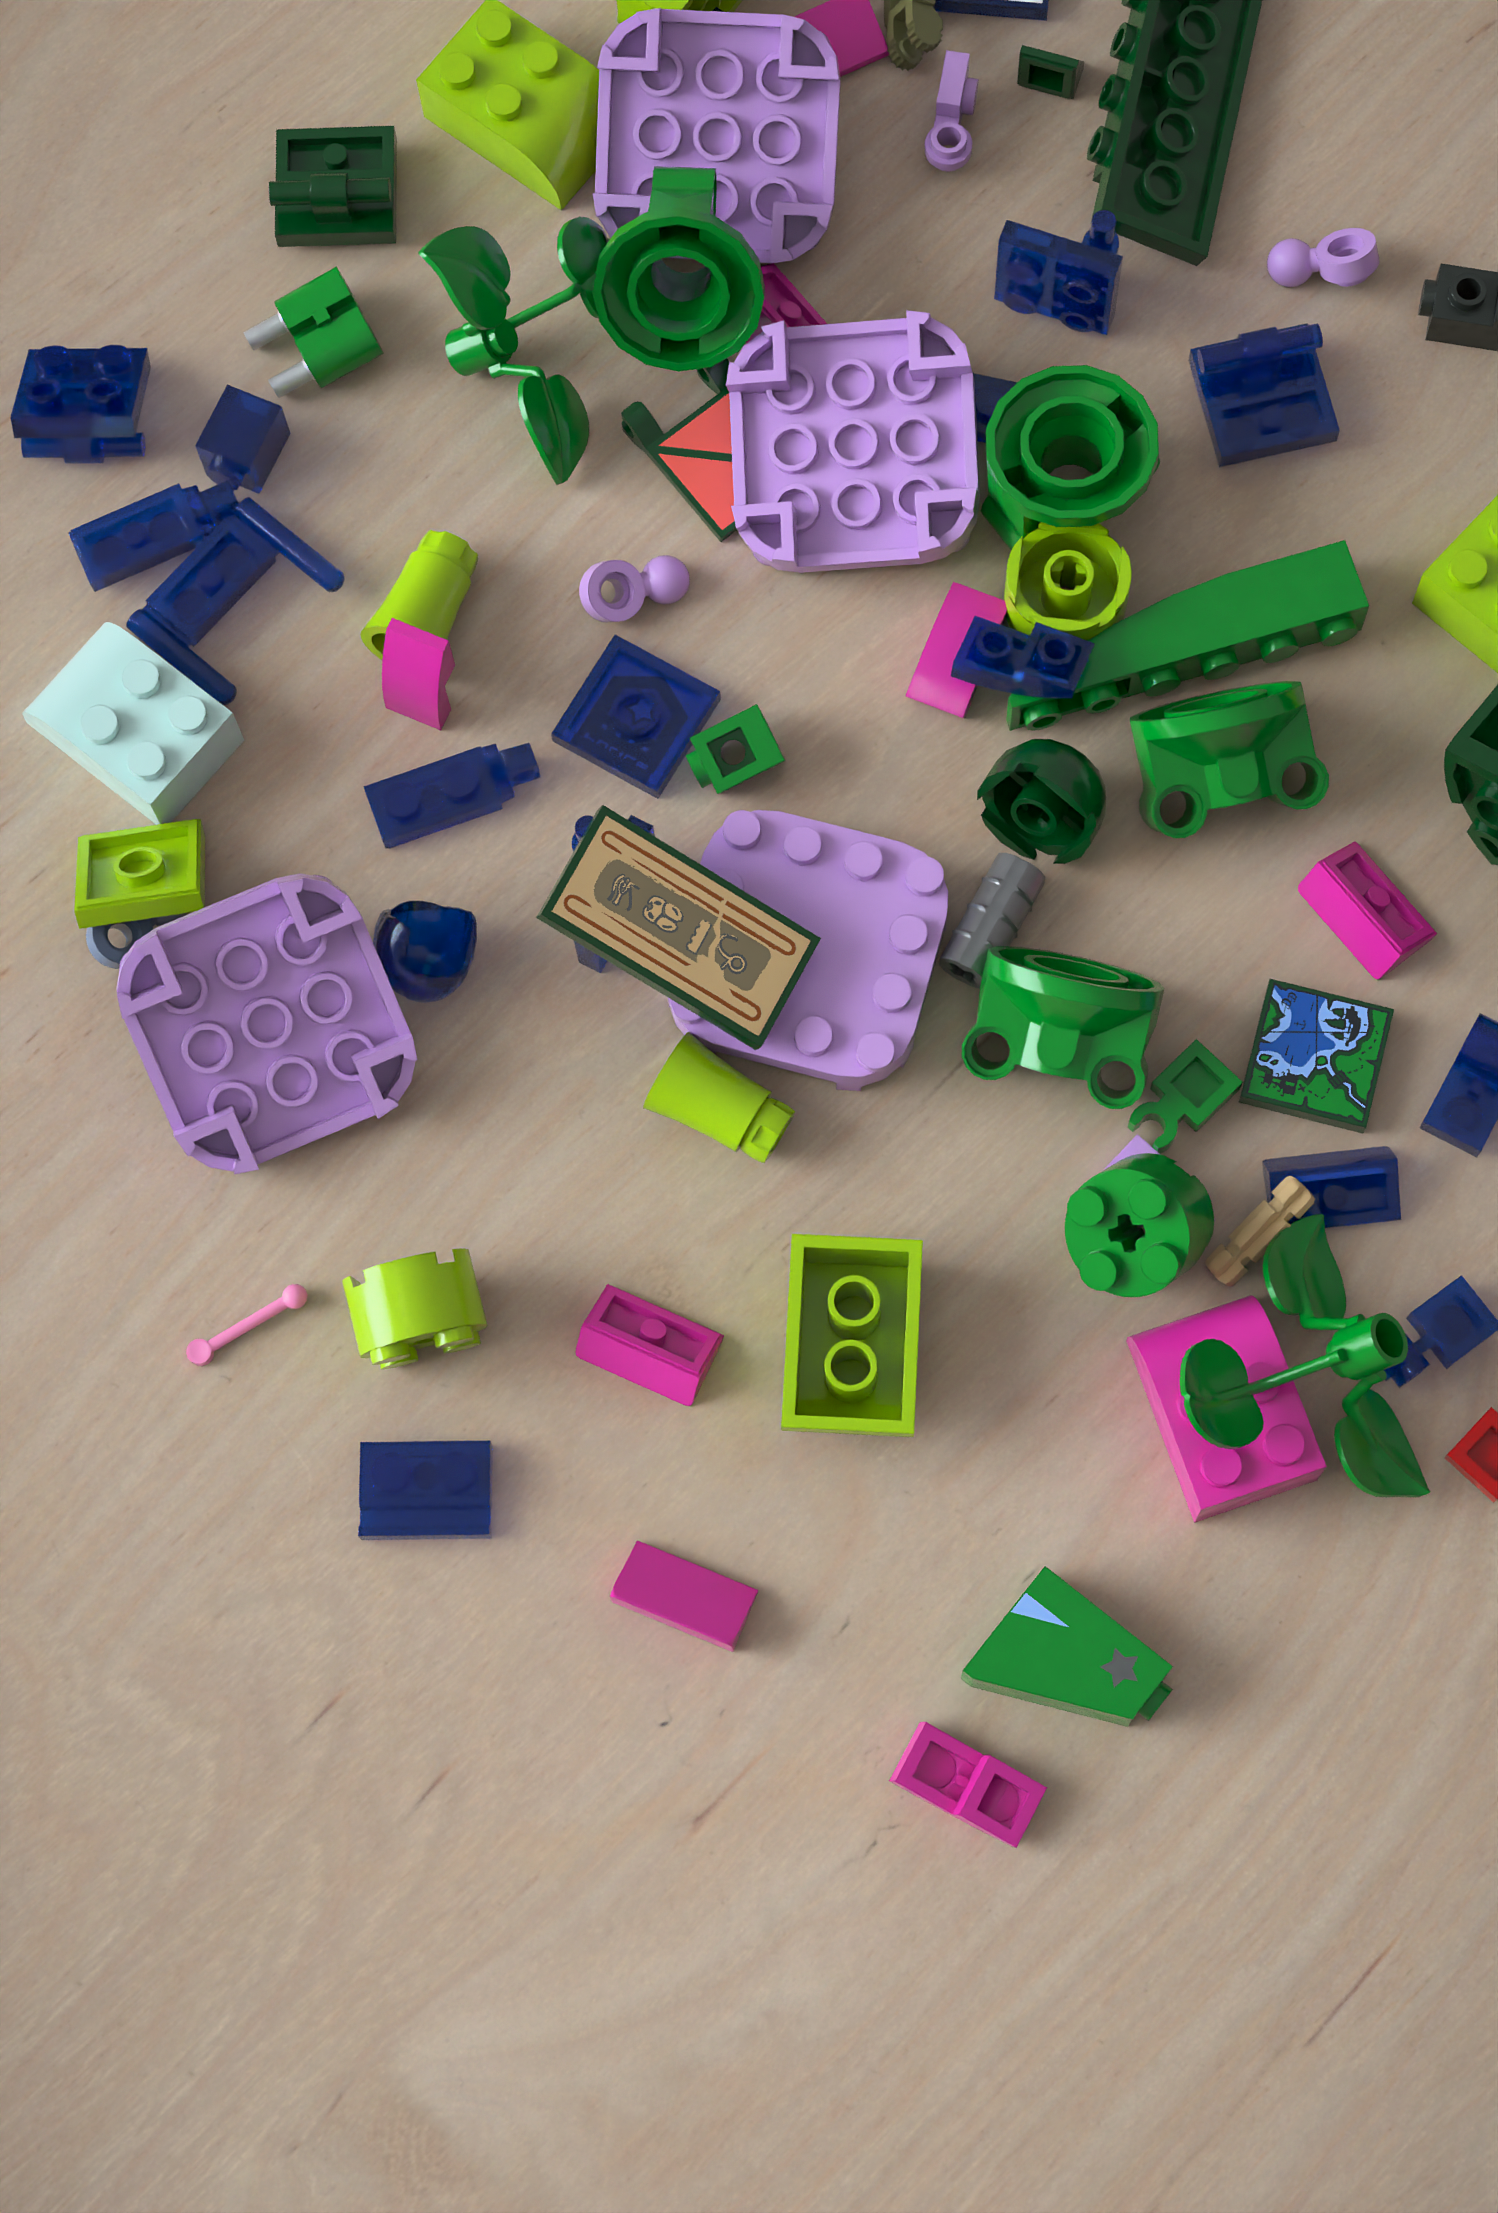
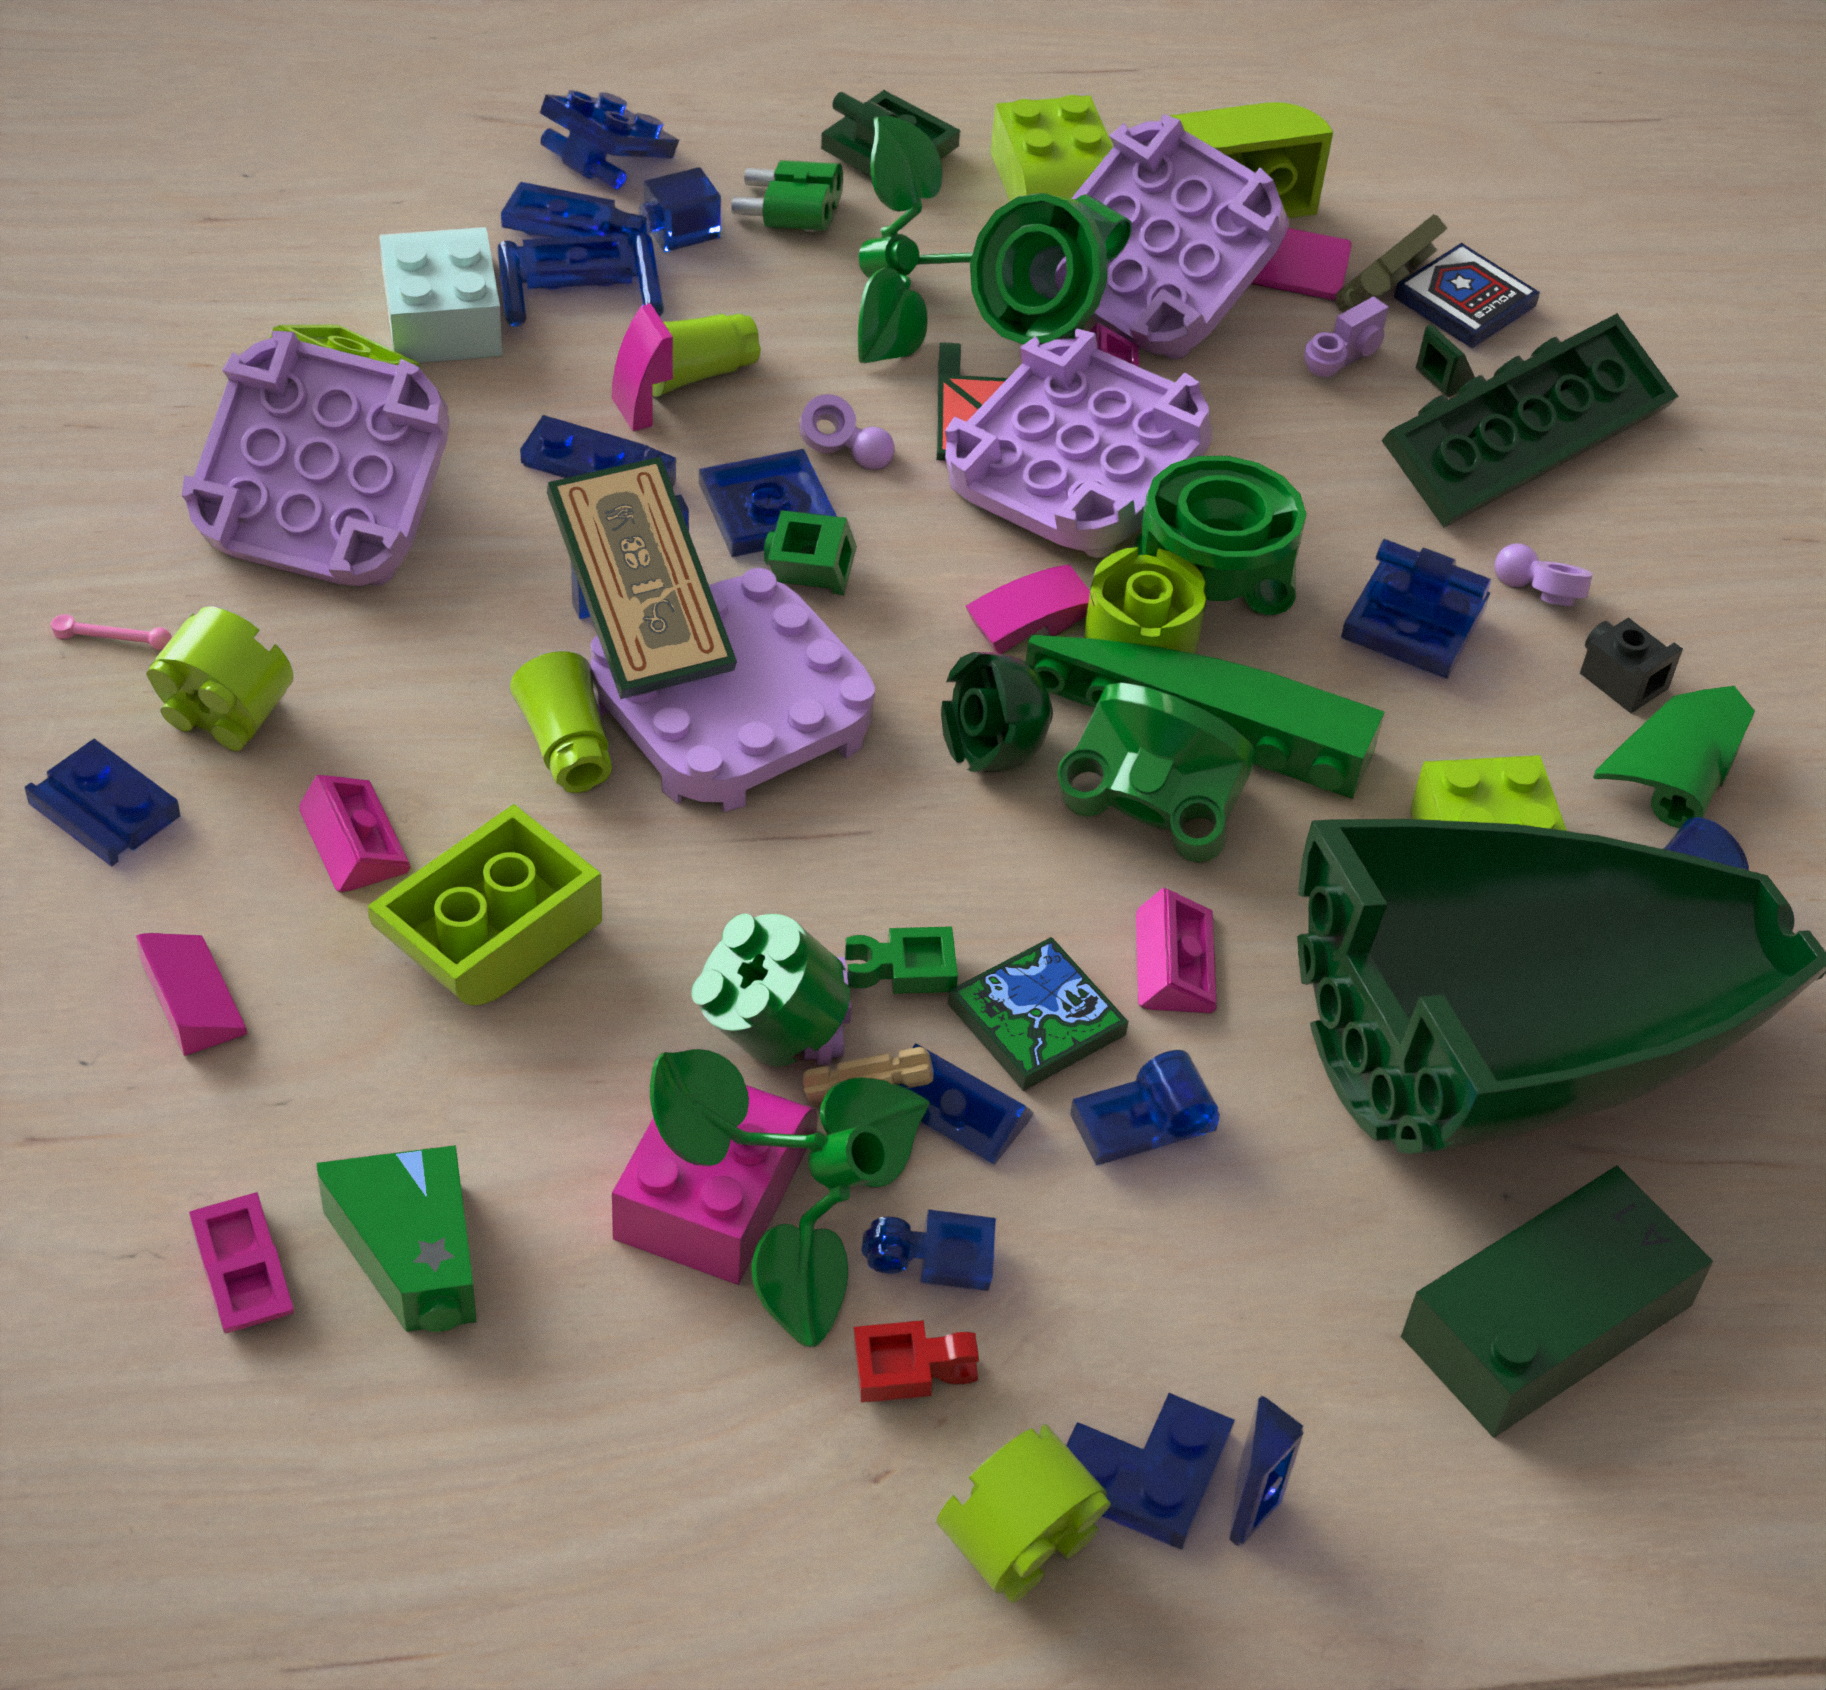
camera: 30 degrees right, 25 degrees down
(425, 948) = (470, 506): clear blue hair -> none
(992, 917) = (881, 761): flat silver axle -> none
(1012, 662) = (1061, 619): clear blue slope -> none
(1061, 275) = (1330, 449): clear blue plate -> none
(1065, 1018) = (860, 837): green piece -> none

